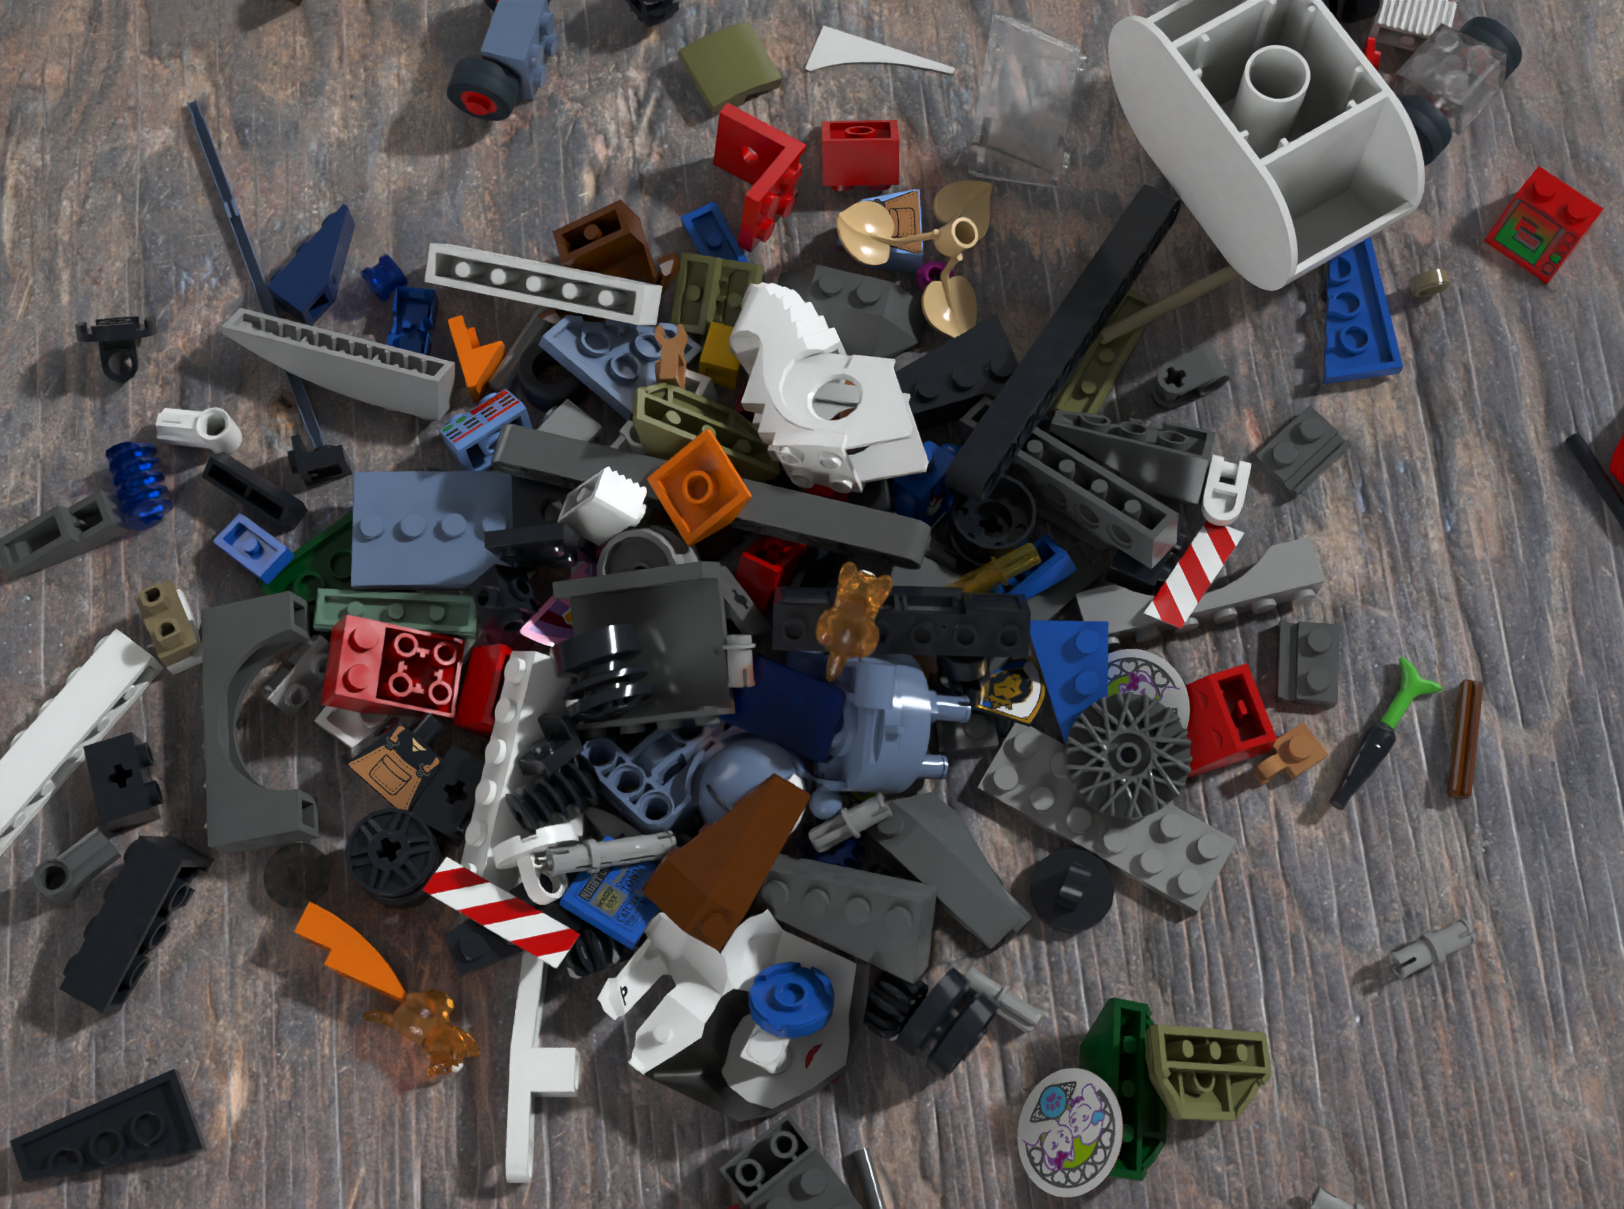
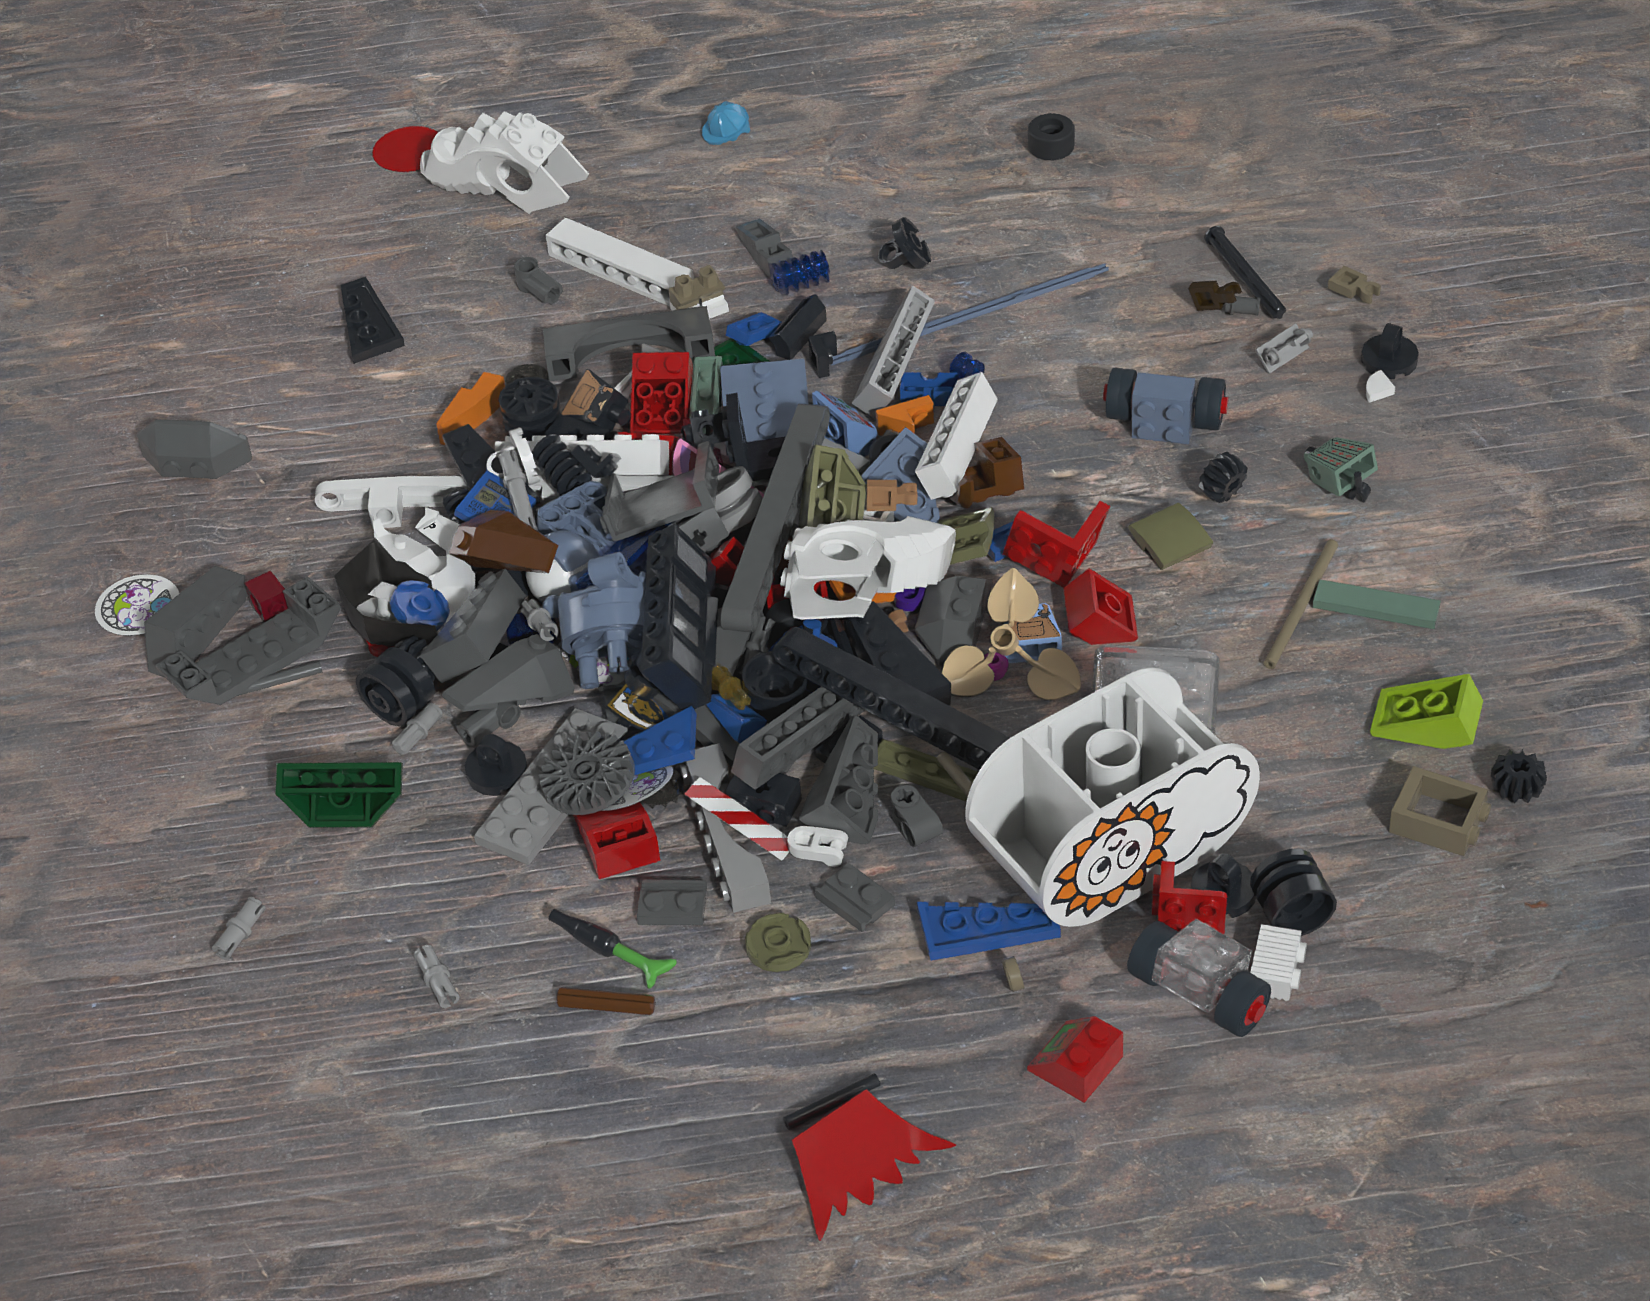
camera: 90 degrees right, 25 degrees down
(107, 766) = (592, 293): black brick -> none
(132, 920) = (500, 307): black wedge -> none
(197, 429) = (843, 297): white piece -> none
(313, 275) = (960, 332): dark blue slope -> none
(427, 1022) = (417, 448): clear orange animal -> none
(501, 912) = (476, 453): sticker -> none
(601, 671) = (641, 468): black wheel -> none
(604, 506) = (761, 455): white brick -> none
(700, 488) = (769, 492): orange slope -> none
(740, 660) = (644, 527): light grey pin -> none
(839, 47) = (1202, 607): white sticker -> none
(849, 625) = (660, 554): clear orange animal -> none
(1070, 1132) = (314, 756): sticker -> none
(1206, 1070) = (348, 820): olive wedge -> none
(1293, 753) = (595, 894): medium nougat plate -> none
(1370, 540) = (778, 942): none -> olive tile

